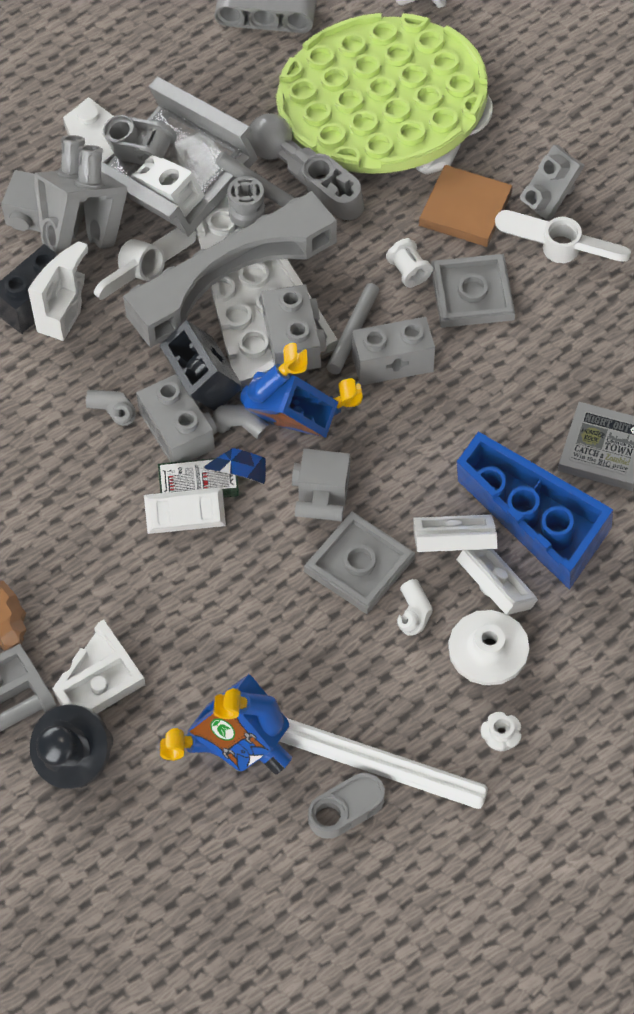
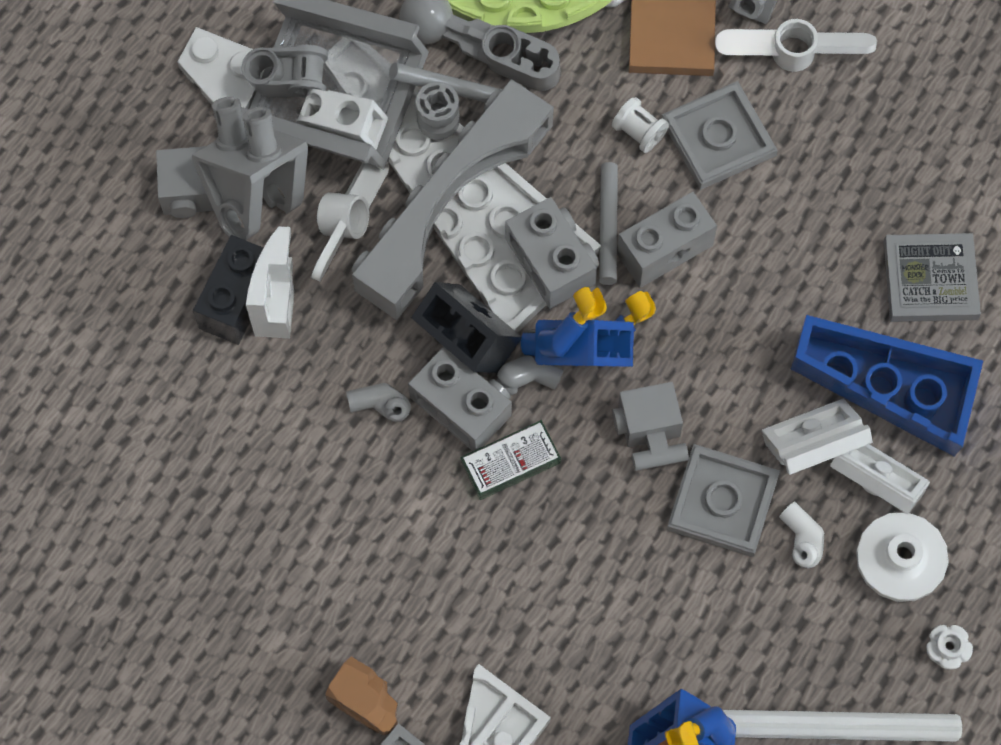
camera: 20 degrees left, 10 degrees up
(184, 510) = (511, 502): white tile -> none
(240, 464) = (550, 427): sticker -> none

